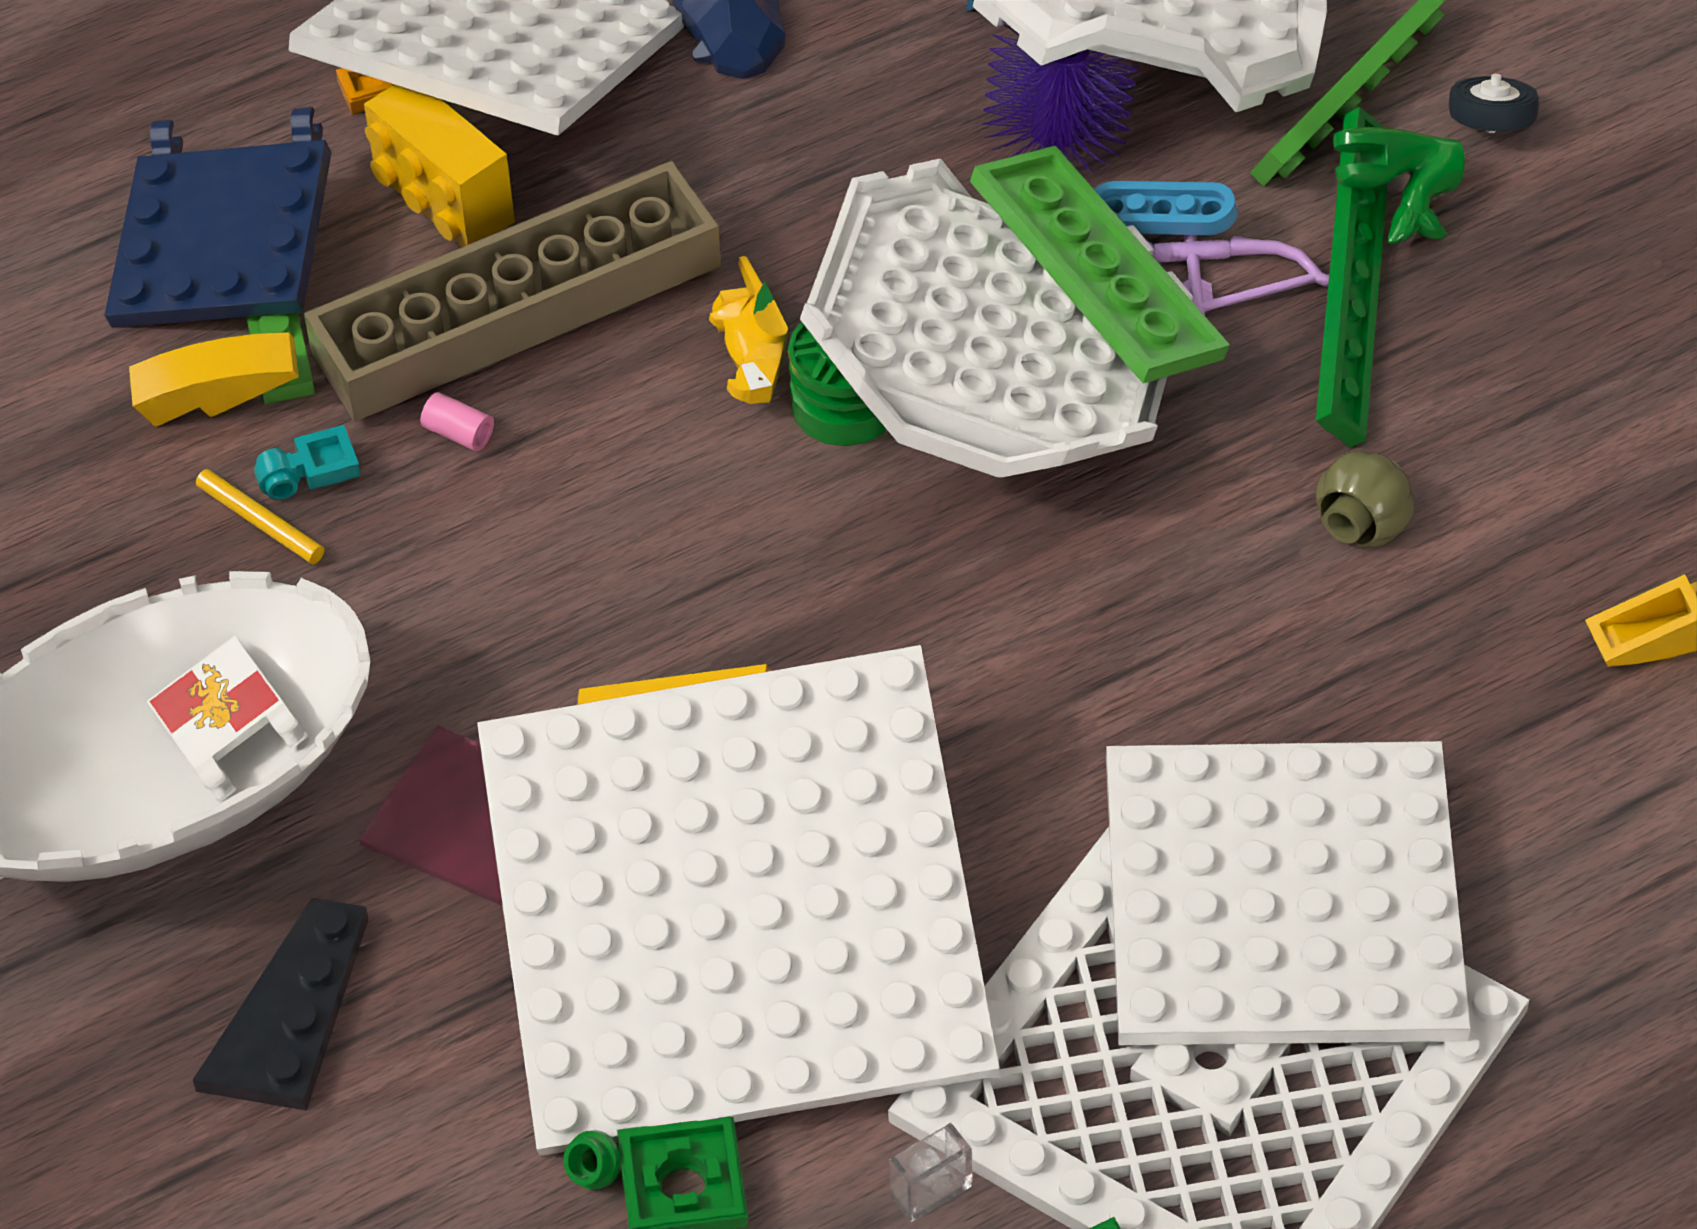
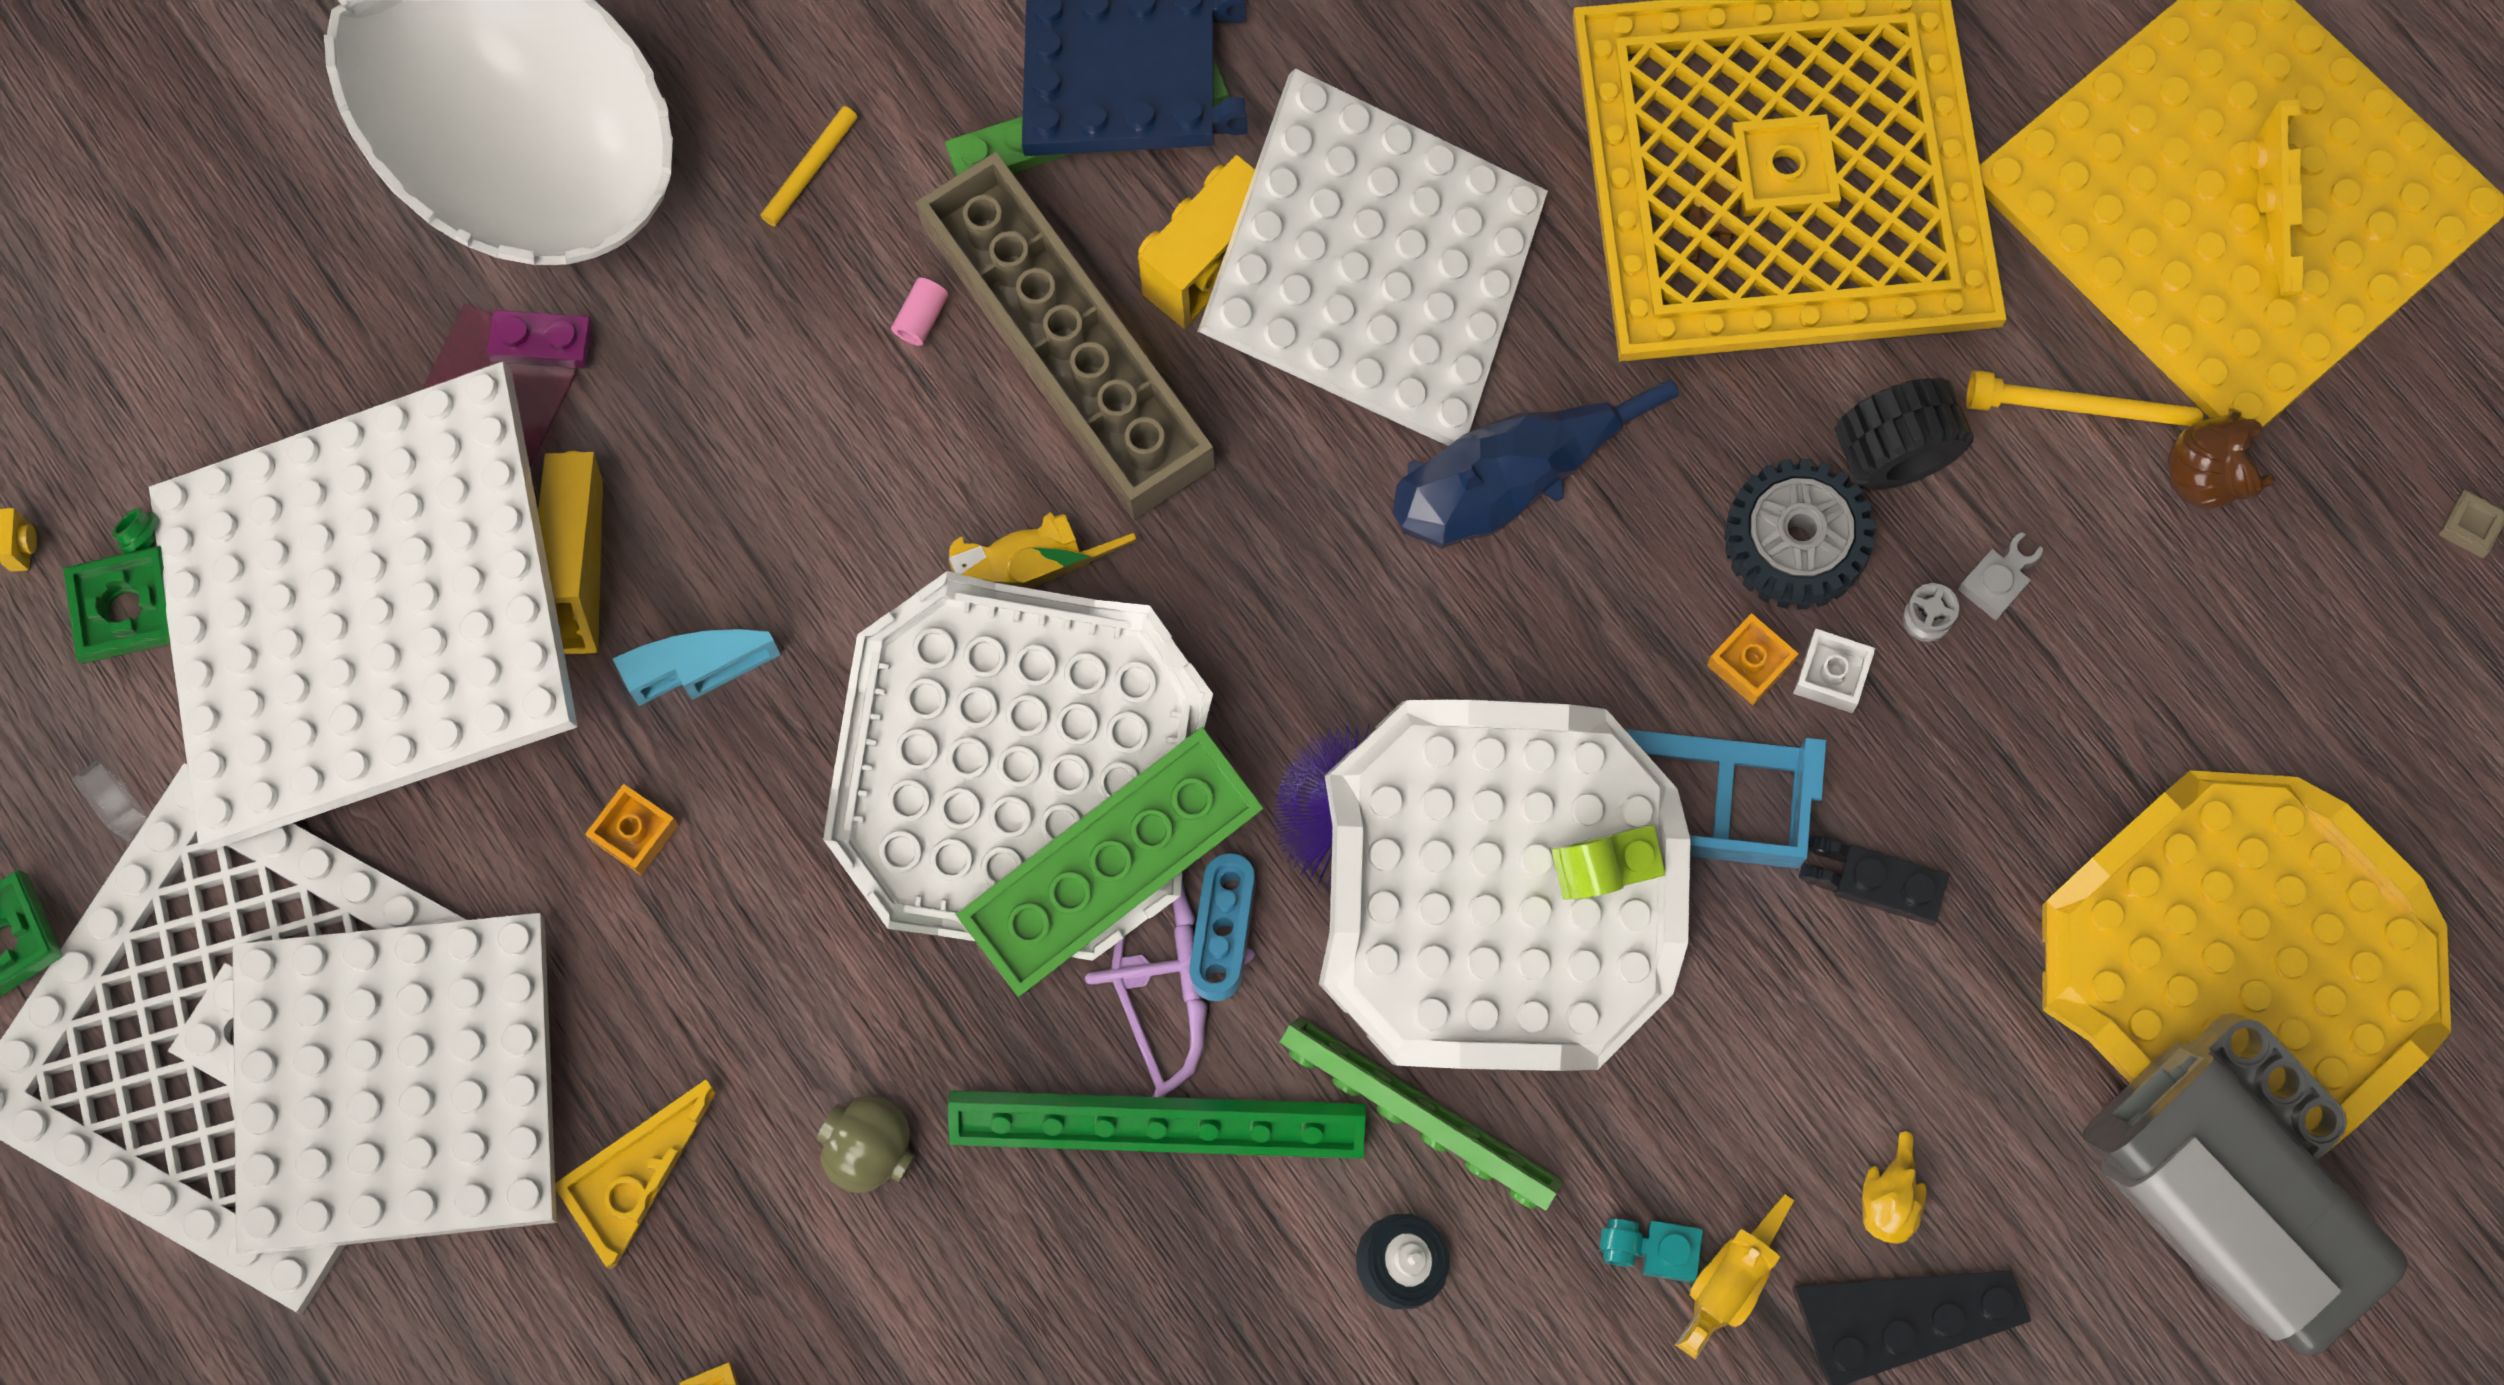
camera: 85 degrees right, 20 degrees up
(212, 375) = (947, 94): yellow slope -> none
(218, 709) = (554, 166): flag -> none
(286, 1021) = (283, 277): black wing -> none
(319, 457) = (866, 202): teal plate -> none
(421, 759) = (539, 339): none -> magenta plate
(831, 611) = (693, 660): none -> medium azure slope
(1010, 690) = (632, 829): none -> light orange piece
(1384, 695) = (622, 1181): none -> yellow wing
(1386, 153) = (1279, 1133): green piece -> none

